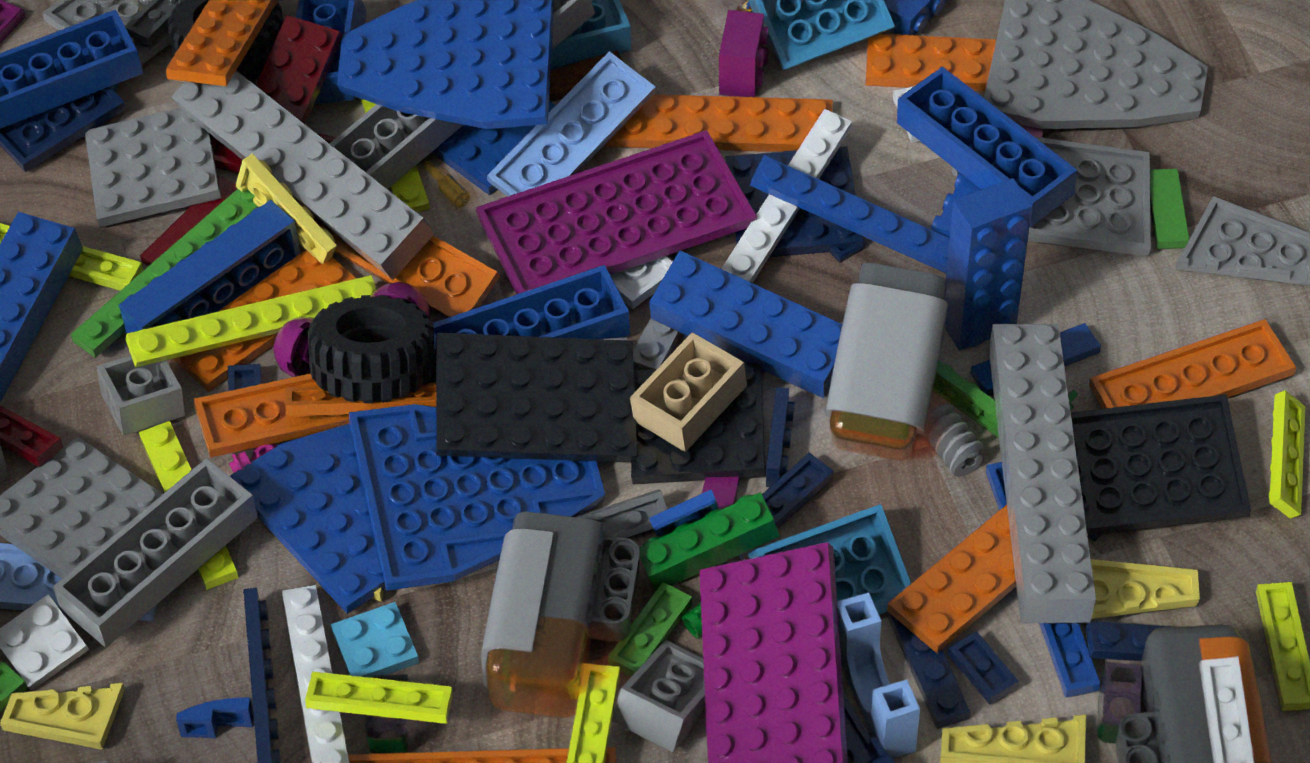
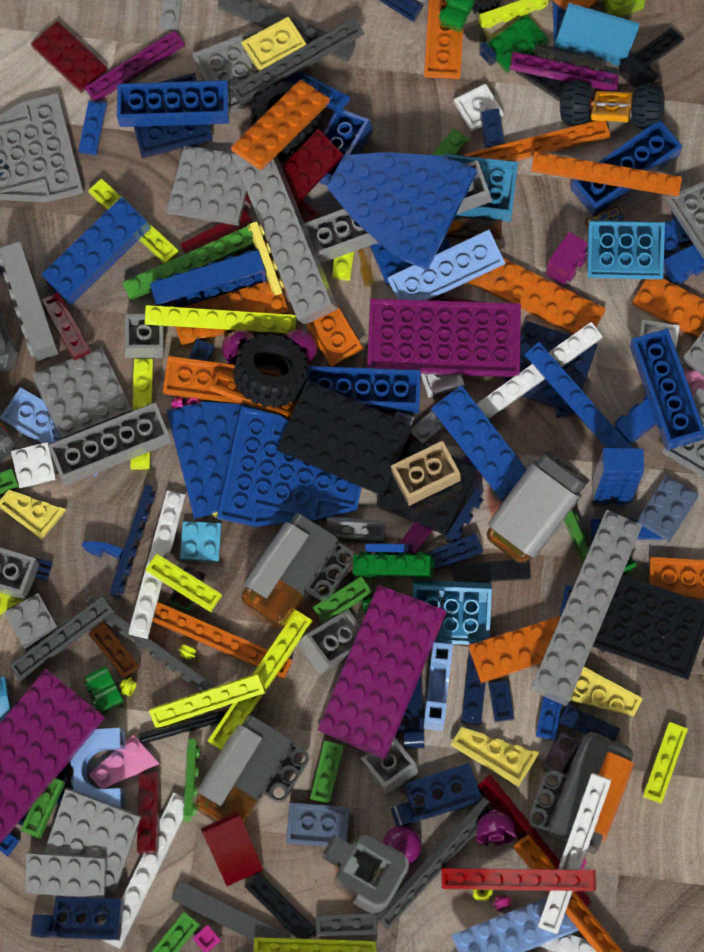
camera: 25 degrees right, 20 degrees up
(875, 489) = (491, 571): none -> black tile
(953, 440) = (554, 561): light grey piece -> none
(1078, 305) = (667, 508): none -> sand blue plate

